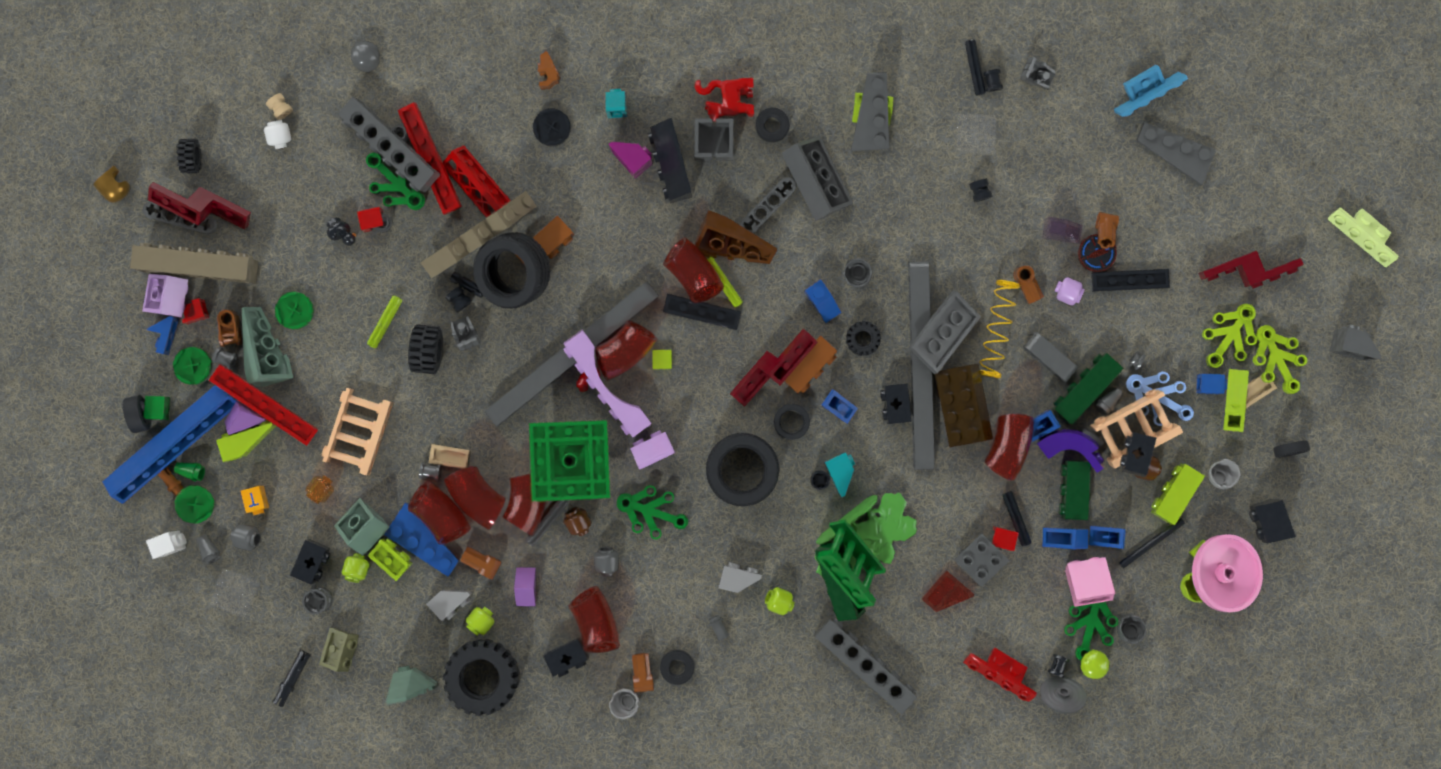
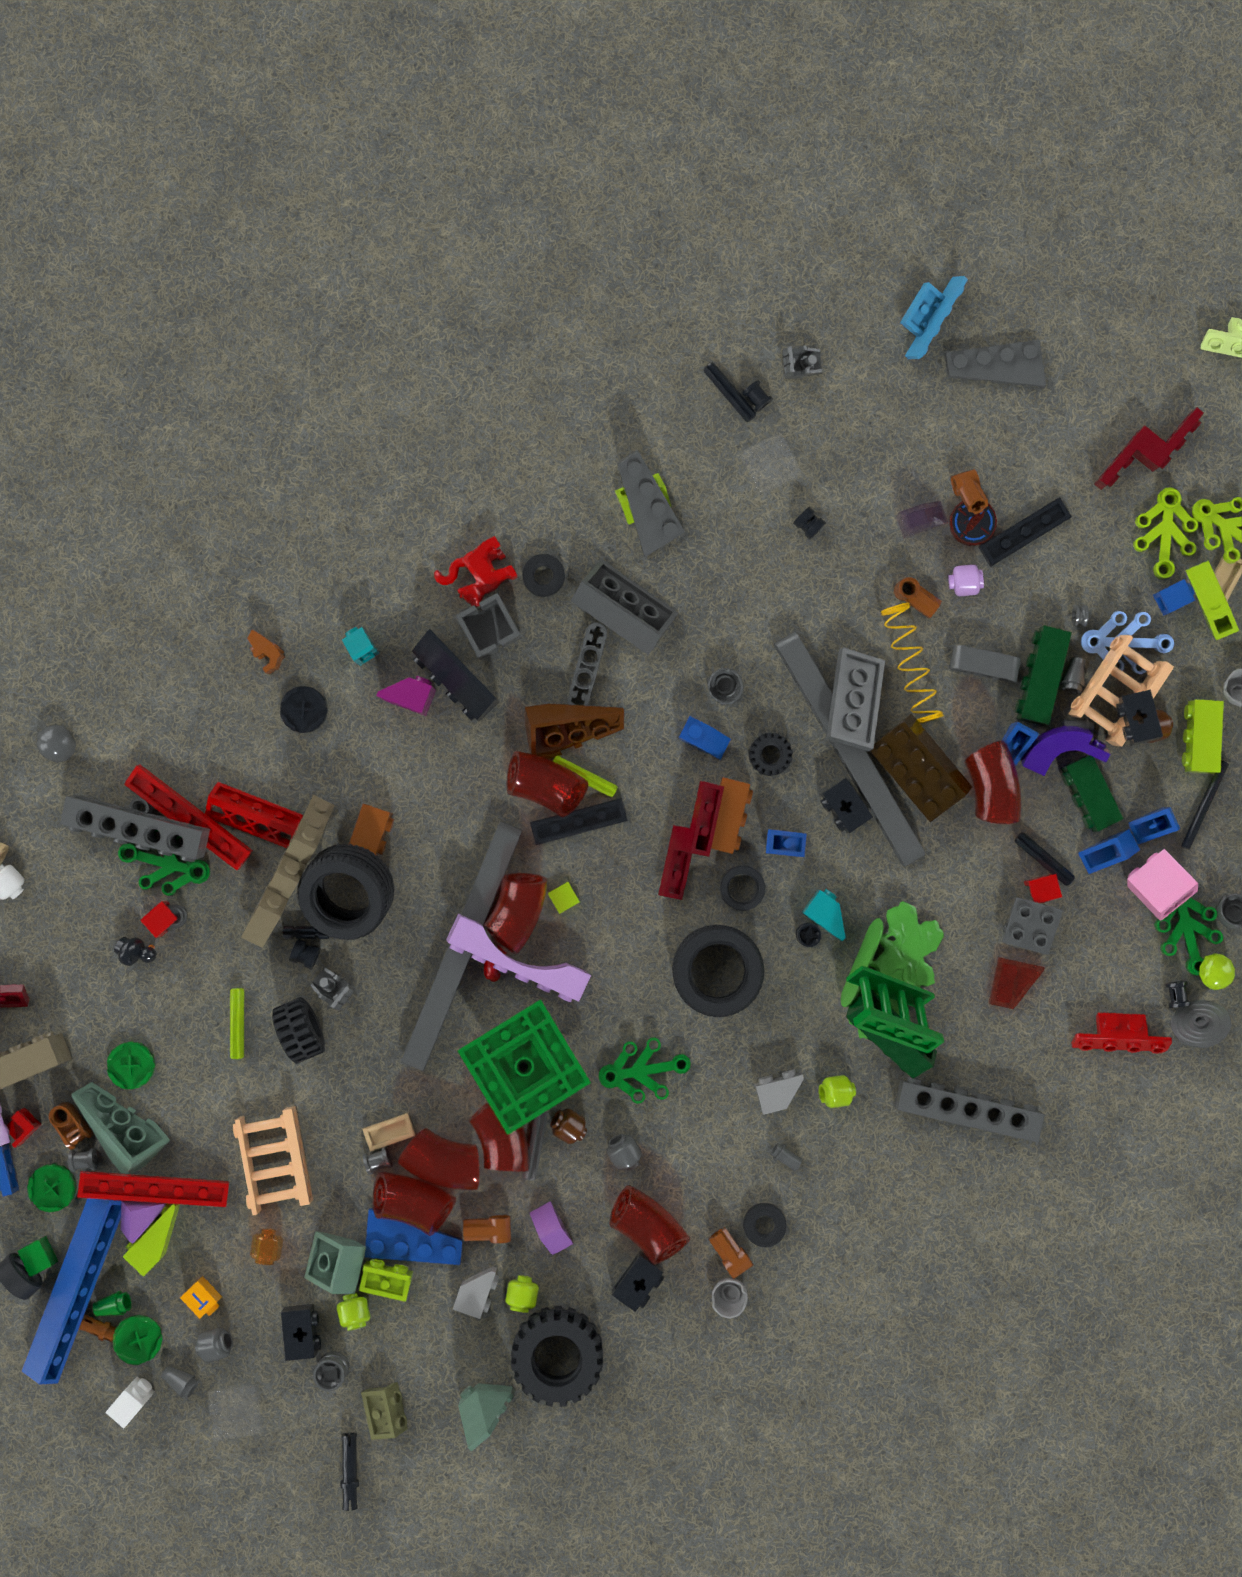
camera: 30 degrees left, 0 degrees up
(652, 450) = (608, 1003): lavender slope -> none

